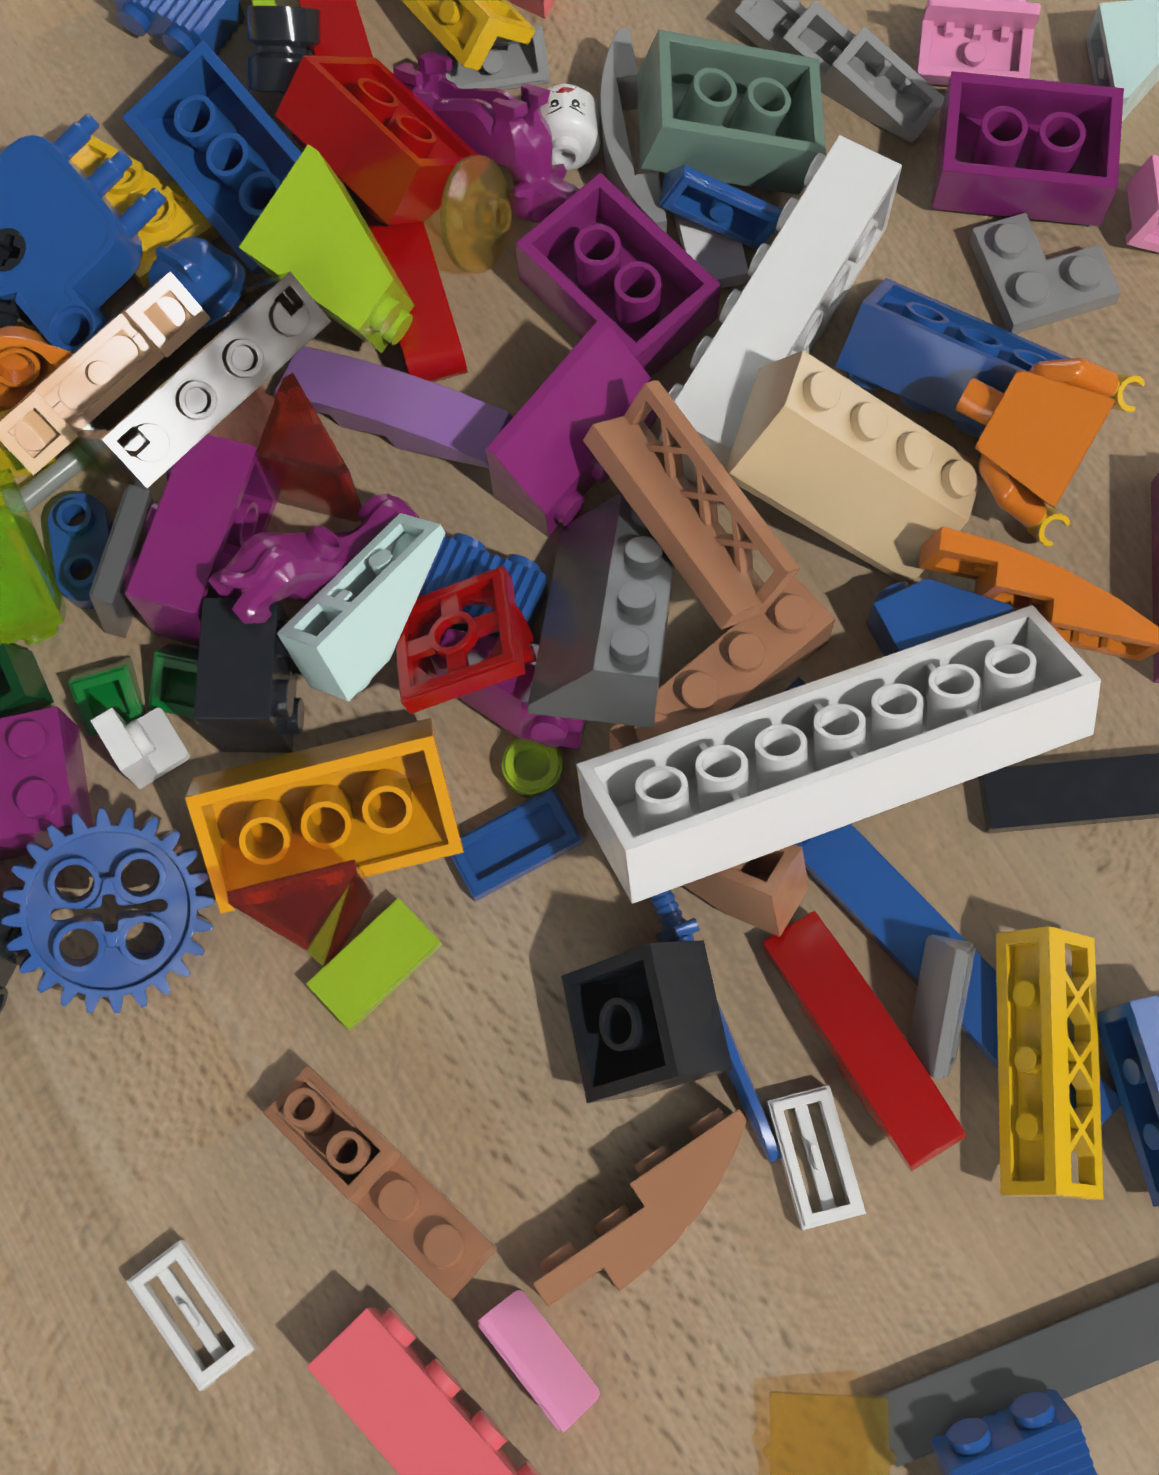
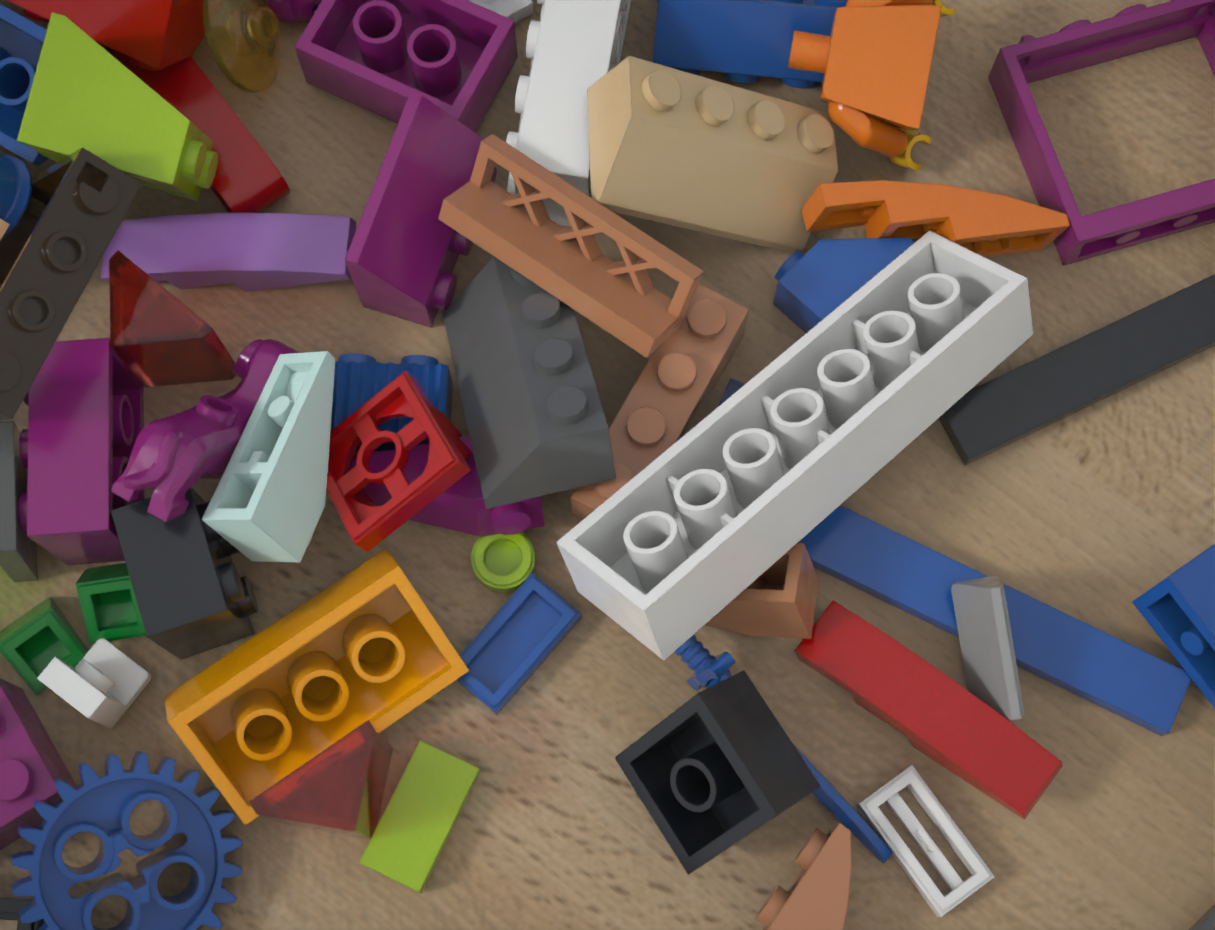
camera: 25 degrees left, 0 degrees up
(1040, 1062) = (1107, 667): yellow fence -> none

